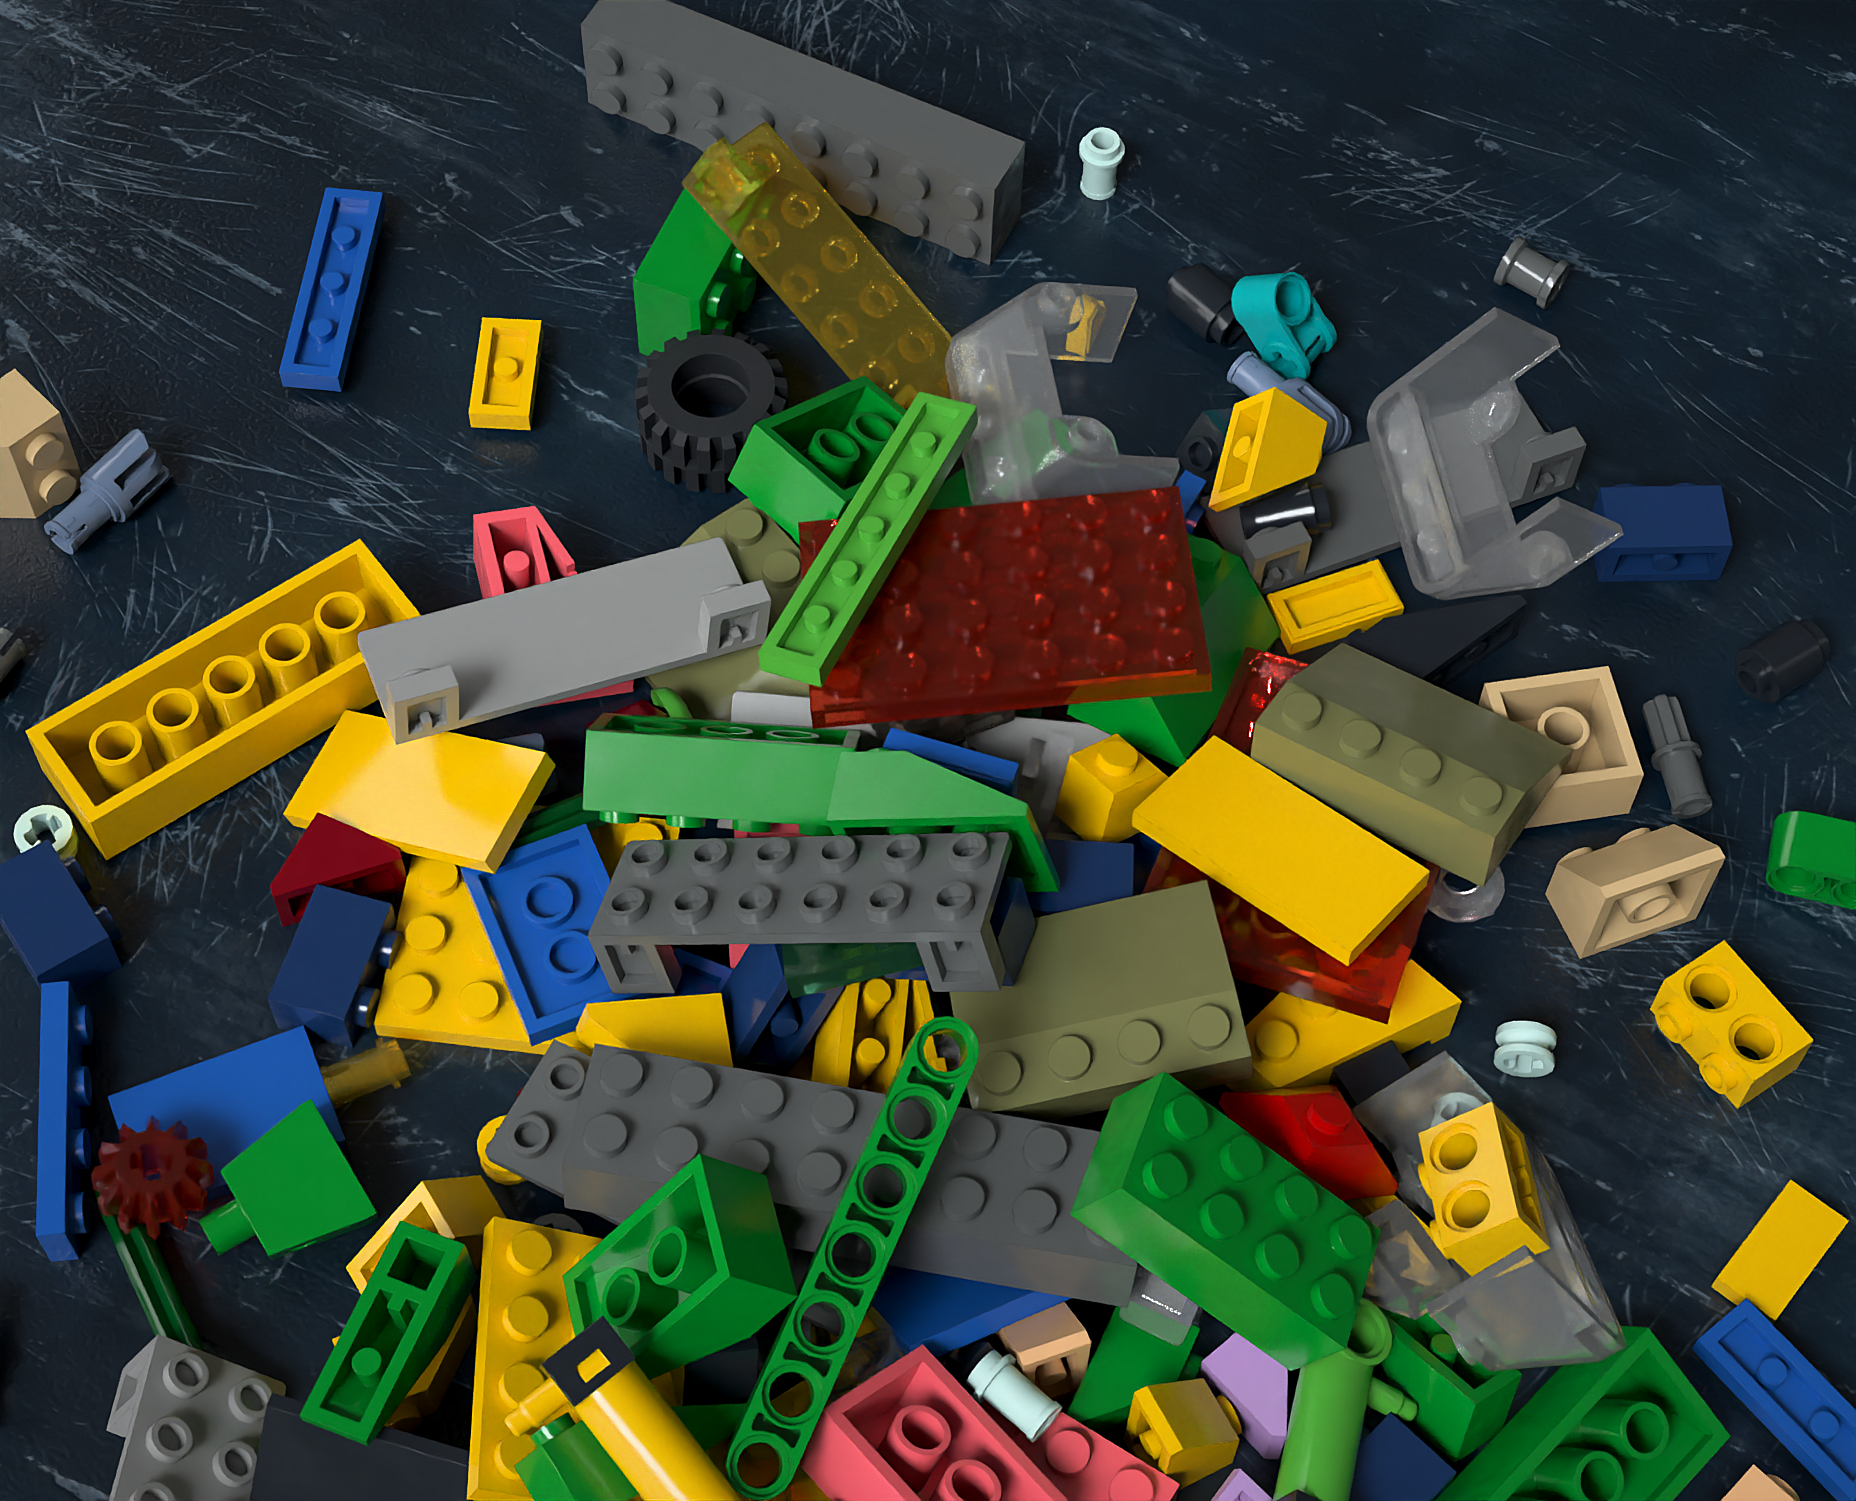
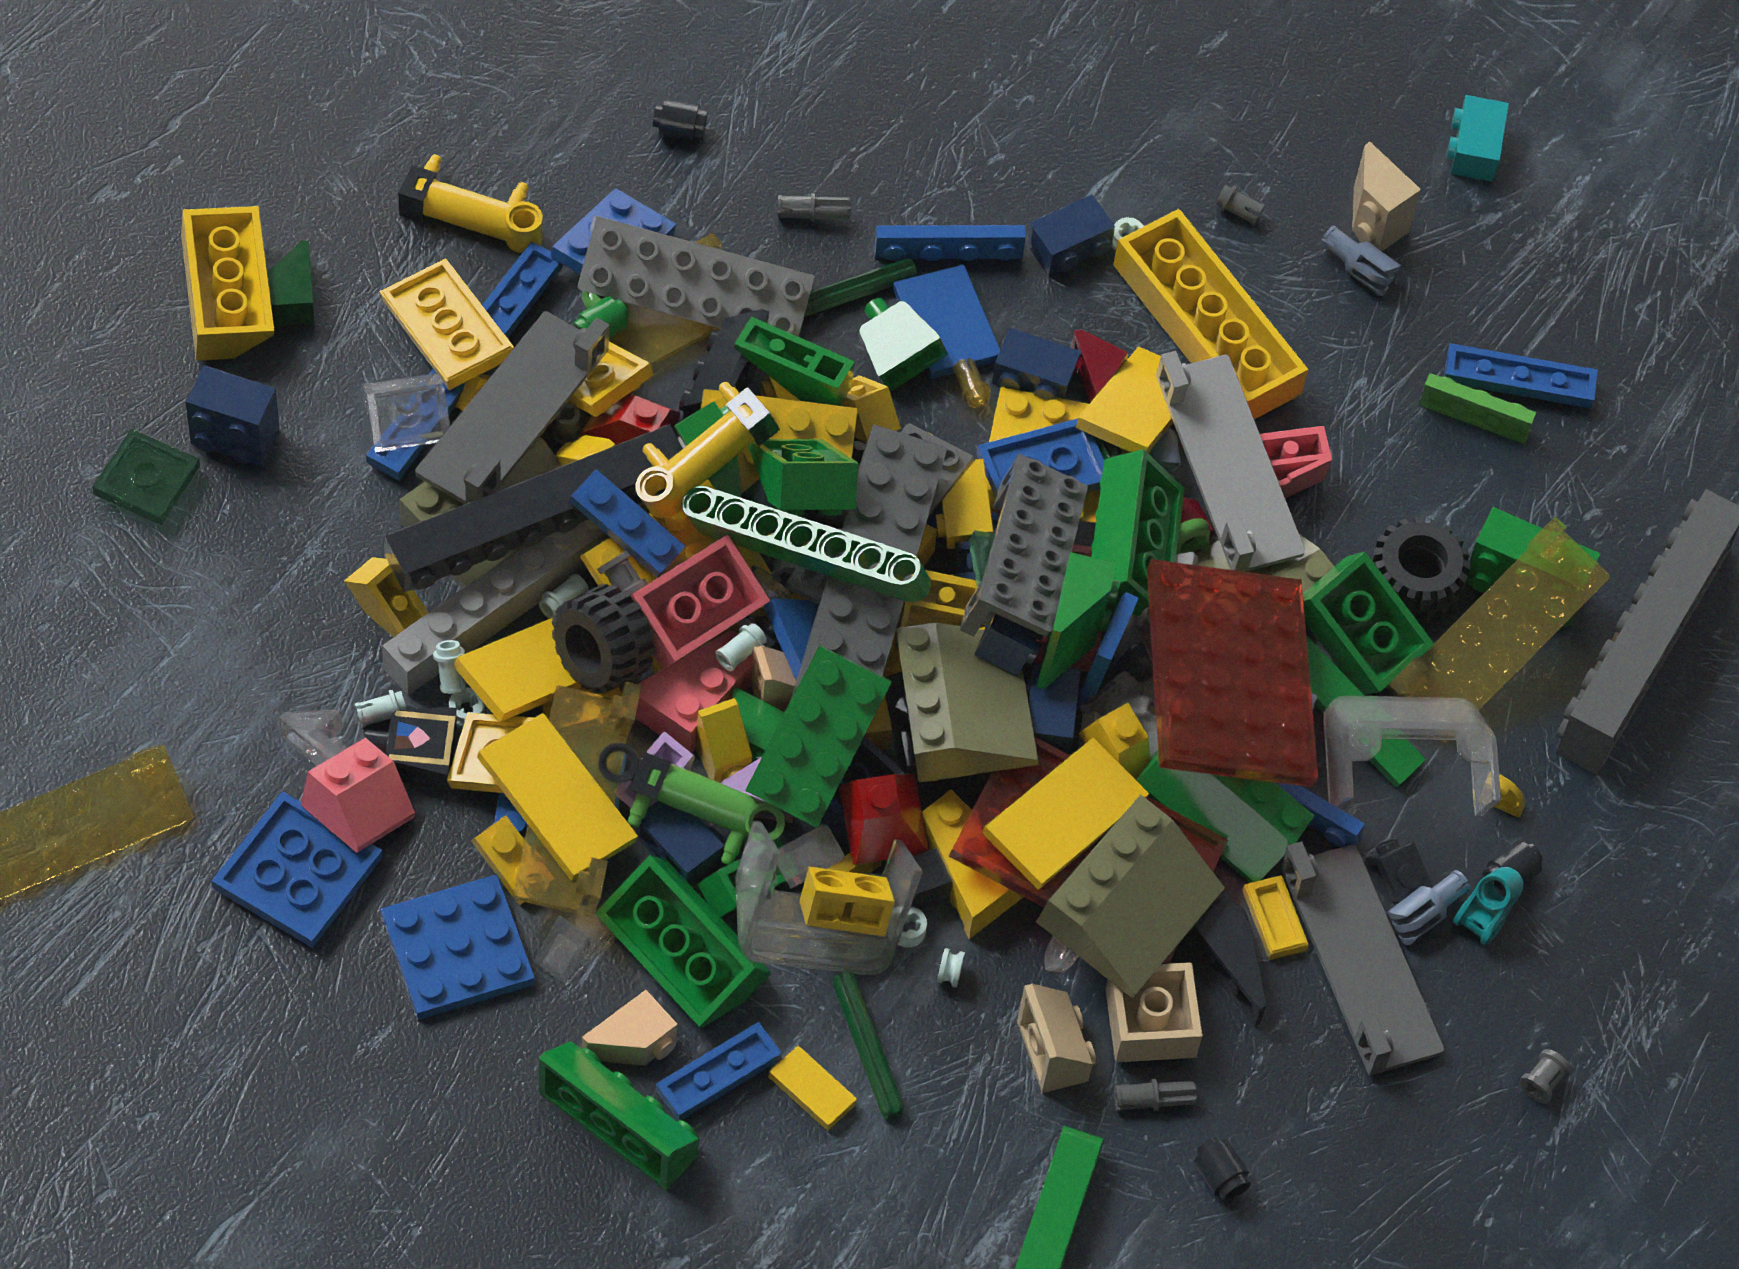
camera: 90 degrees right, 0 degrees up
(137, 1200) = (906, 263): clear red gear -> none
(397, 340) = (1477, 408): none -> bright green plate
(506, 374) = (1453, 466): yellow plate -> none
(868, 540) = (1274, 598): bright green plate -> none
(1101, 153) = (1633, 811): light aqua pin -> none
(1266, 447) = (1373, 869): yellow slope -> none
(1286, 507) = (1334, 886): black cone -> none
(1443, 478) = (1359, 983): clear windscreen -> none
(1667, 533) = (1325, 1114): dark blue brick -> none
(1687, 1170) = (868, 1045): none -> dark green axle
(1742, 1016) = (966, 1090): yellow brick -> none

